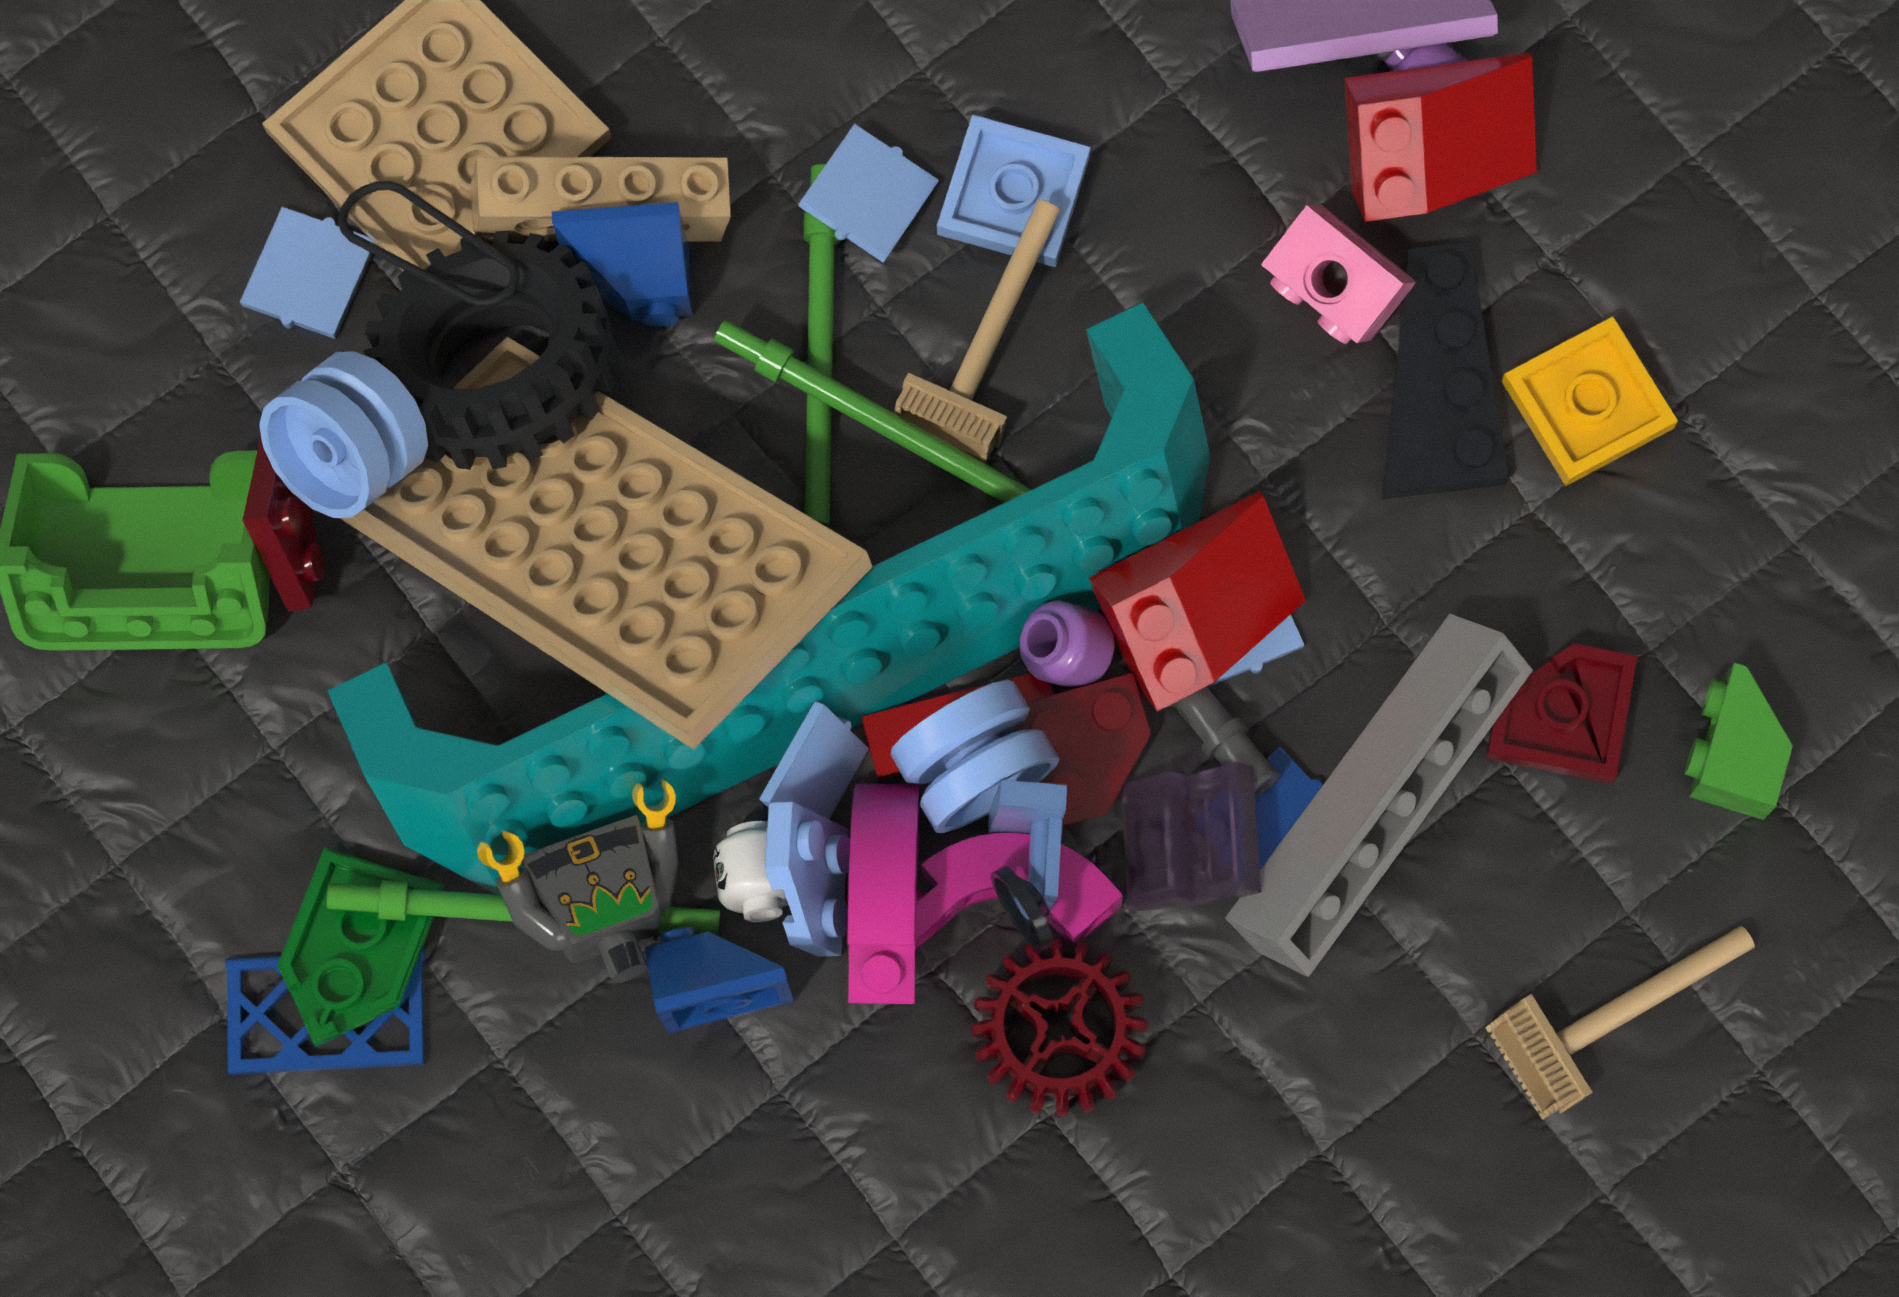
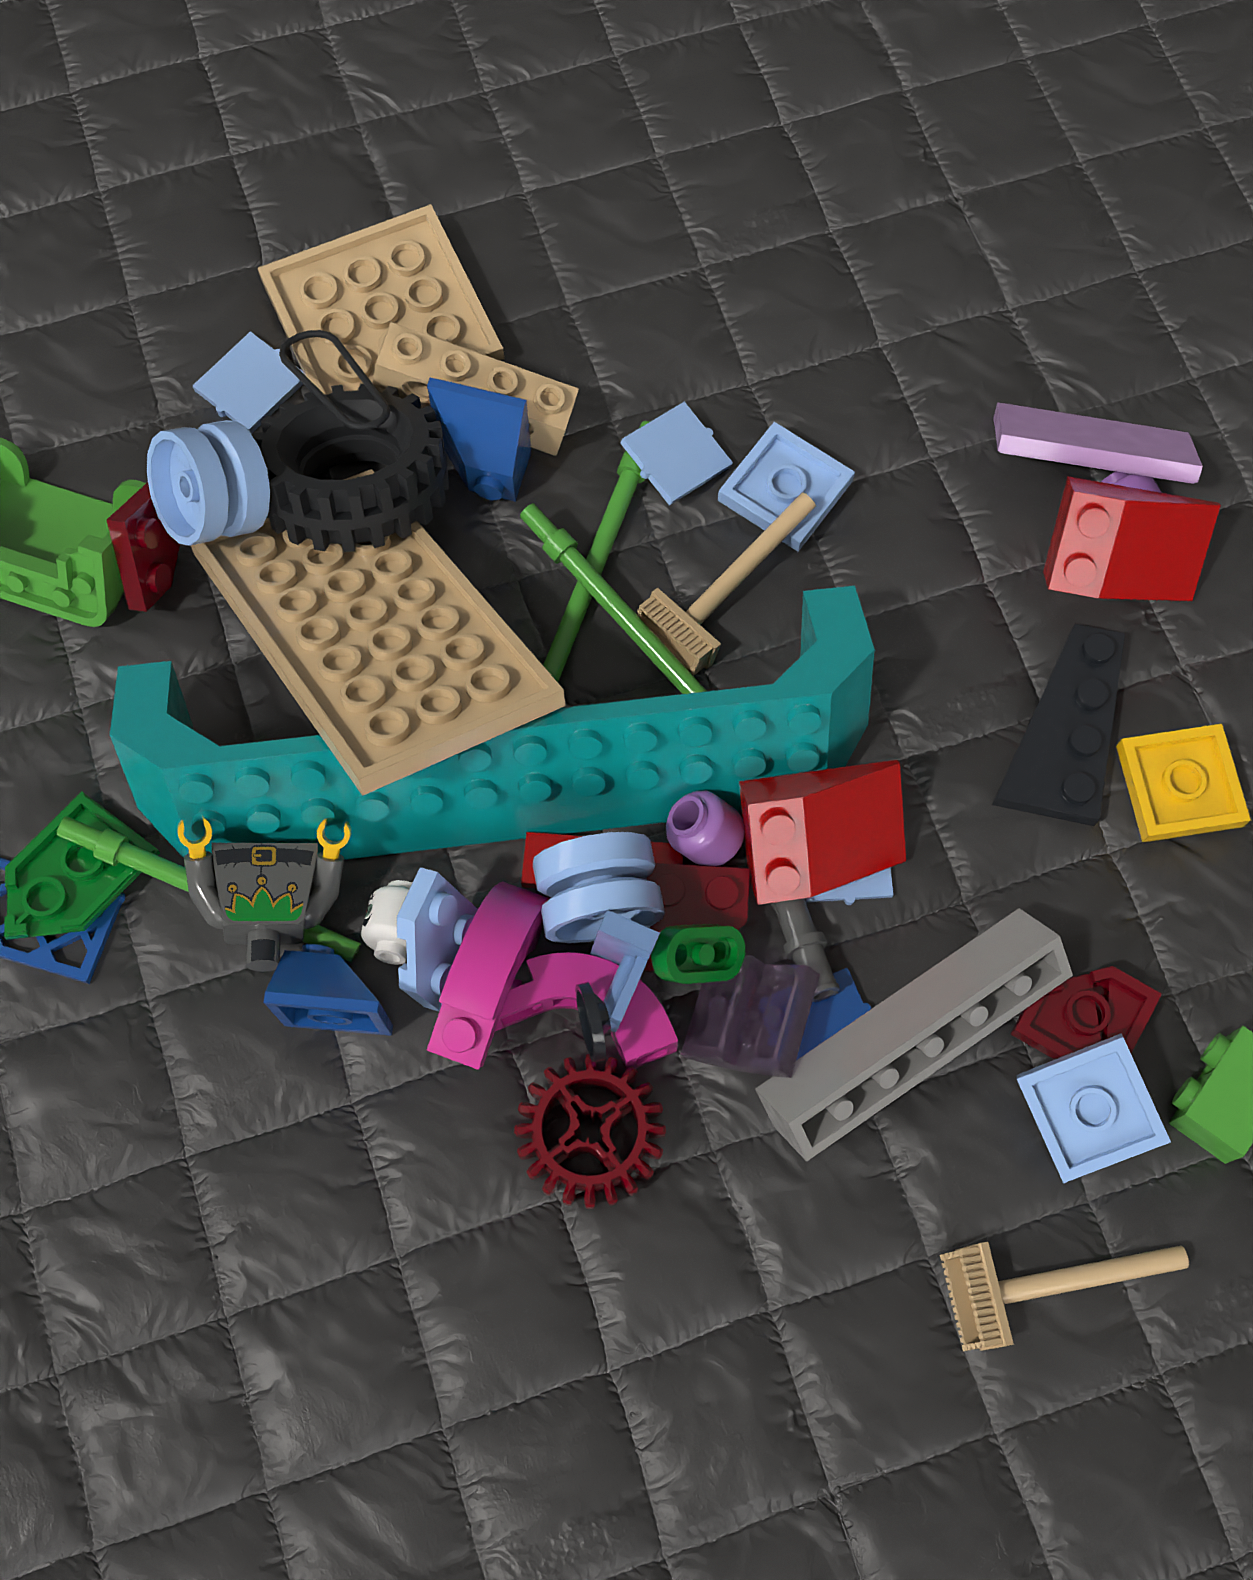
camera: 15 degrees right, 5 degrees down
(817, 763) = (475, 854): light blue piece -> none
(1113, 790) = (698, 953): none -> green plate
(1373, 283) = (1039, 637): bright pink brick -> none
(1599, 810) = (1092, 1108): none -> light blue plate

